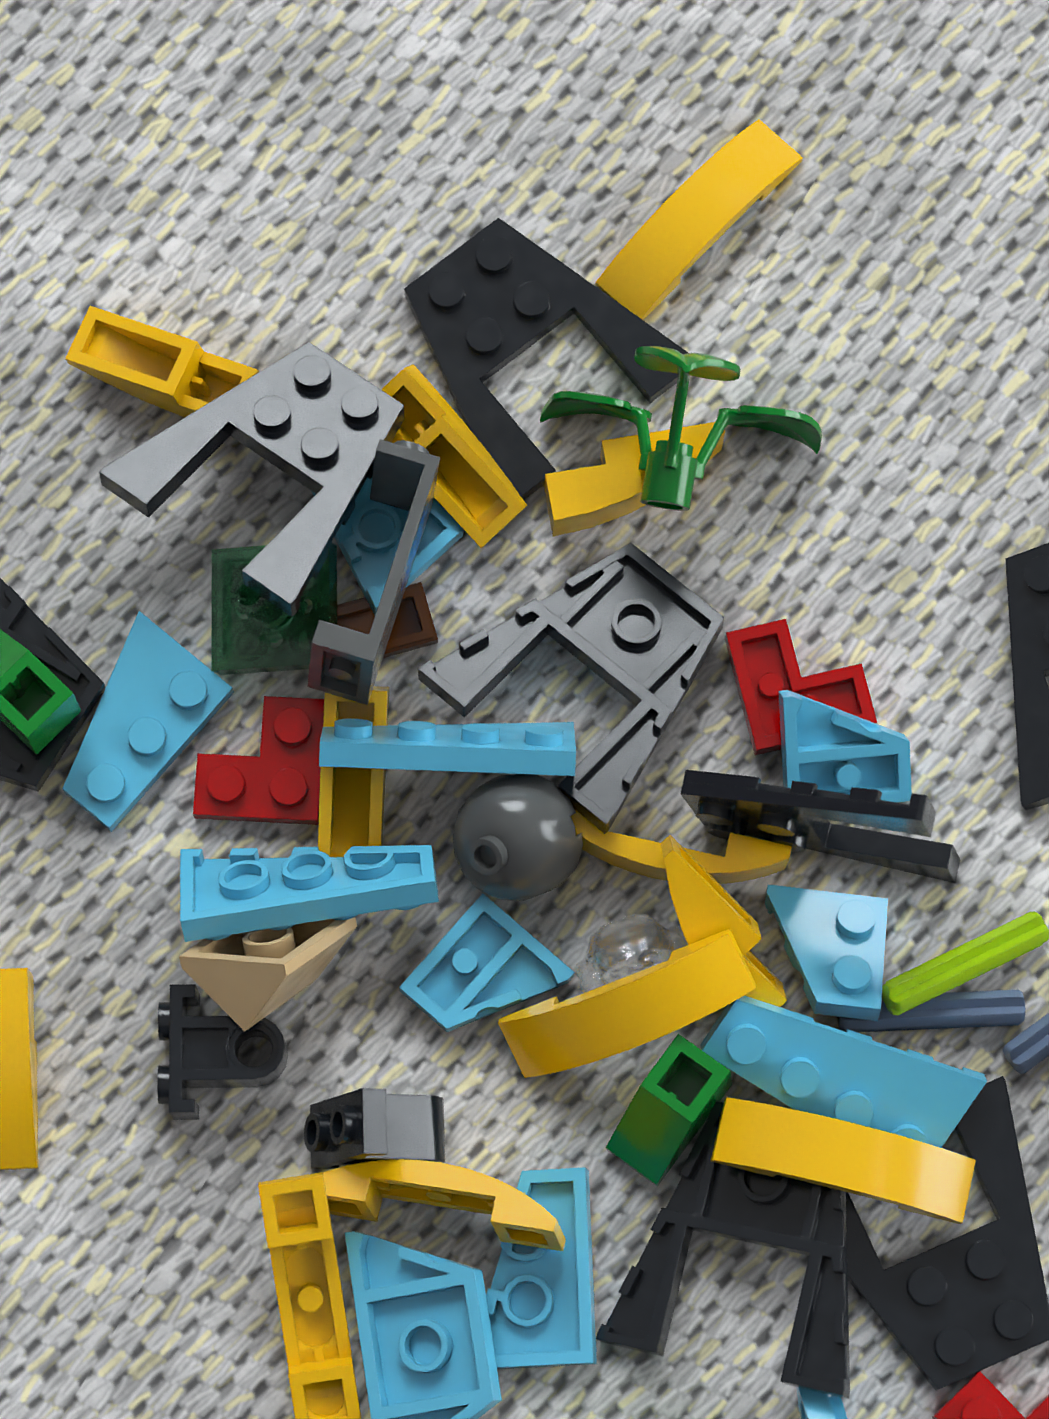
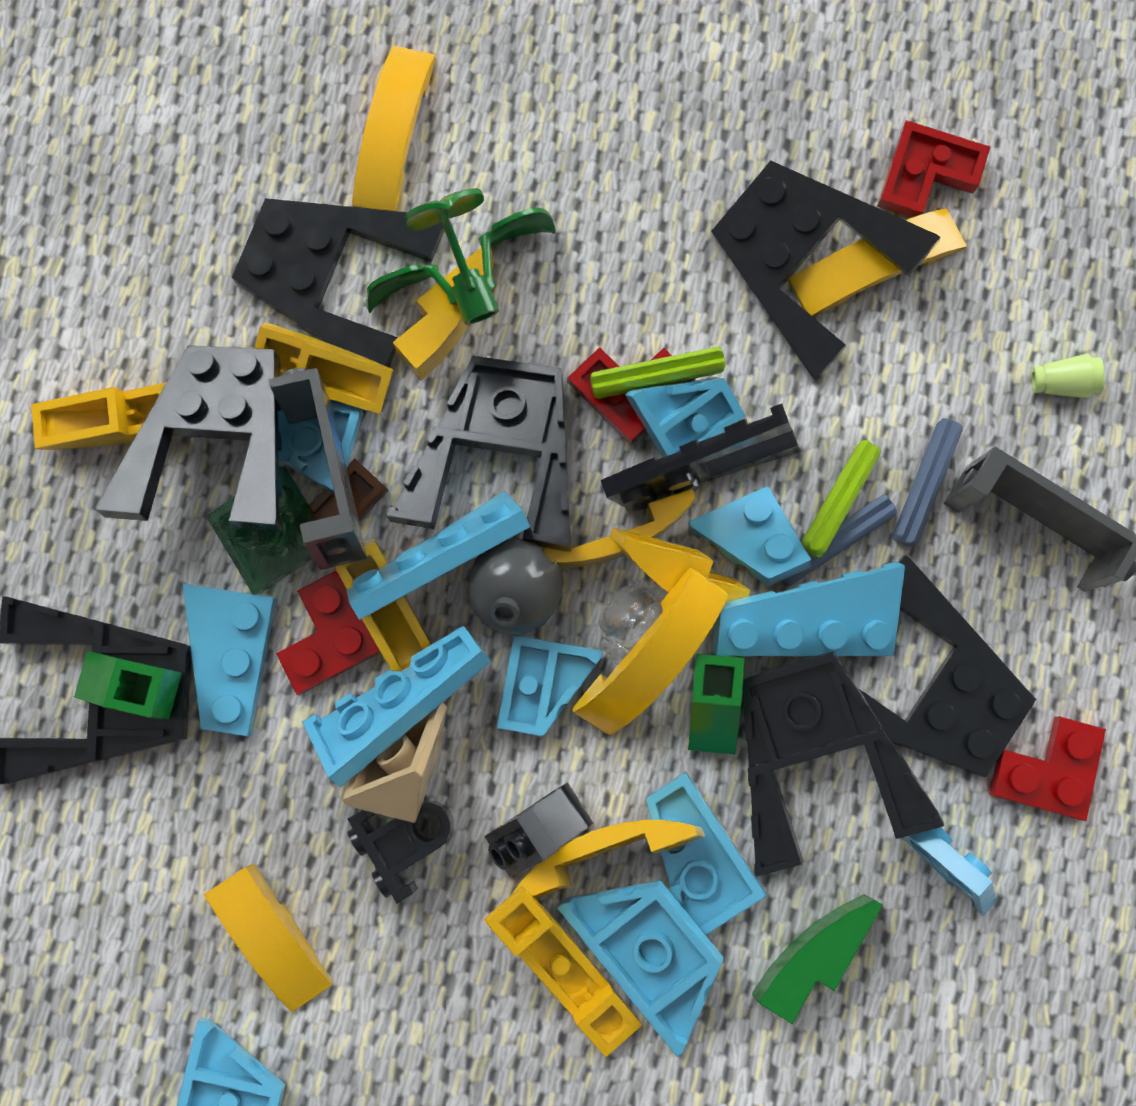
camera: 30 degrees left, 5 degrees up
(834, 688) = (657, 372): none -> lime axle
(844, 1158) = (845, 671): yellow slope -> none

